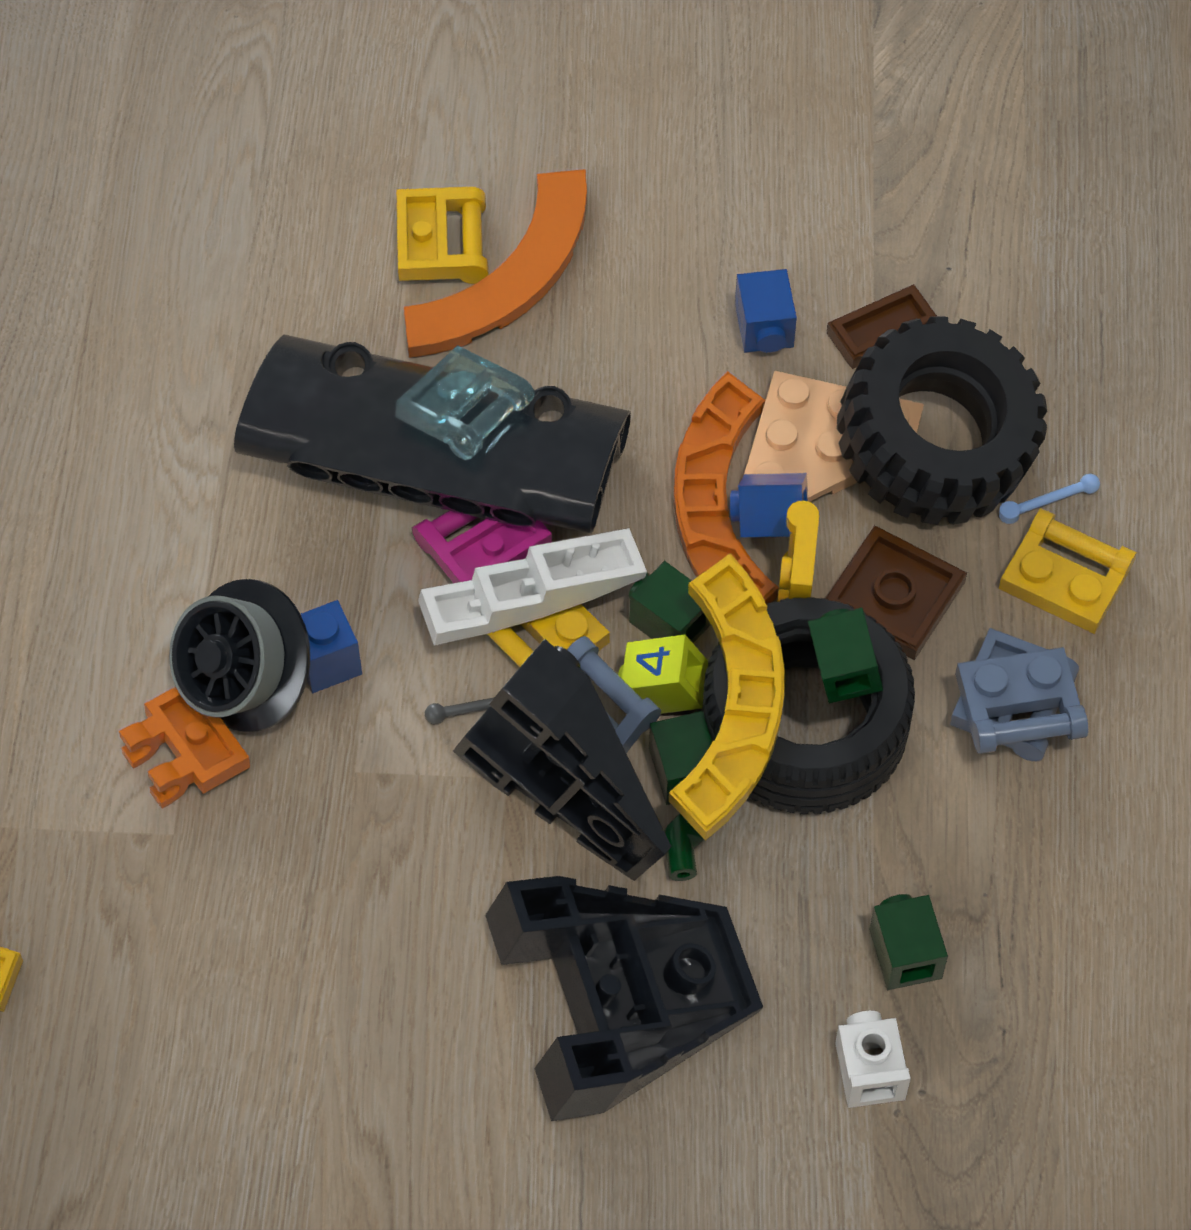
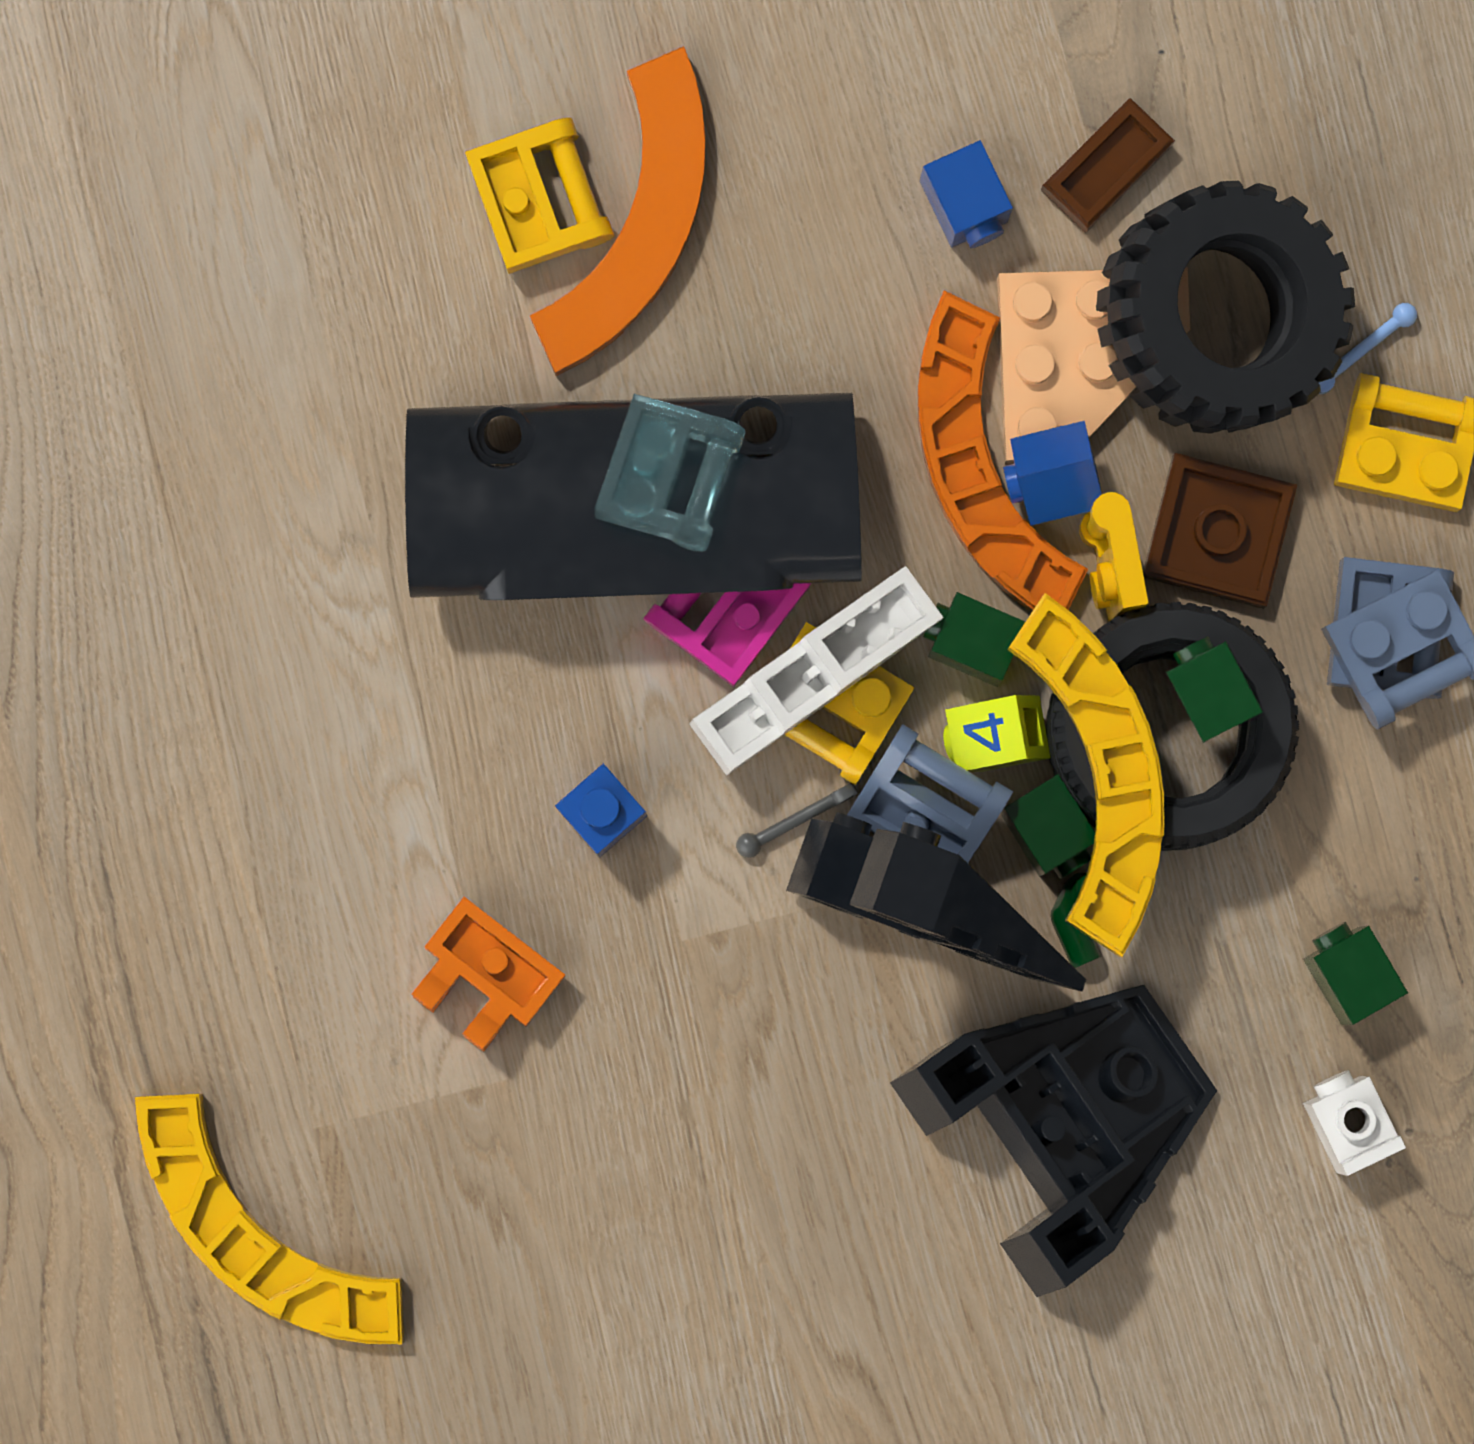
camera: 20 degrees left, 25 degrees up
(241, 655) = (517, 866): black piece -> none

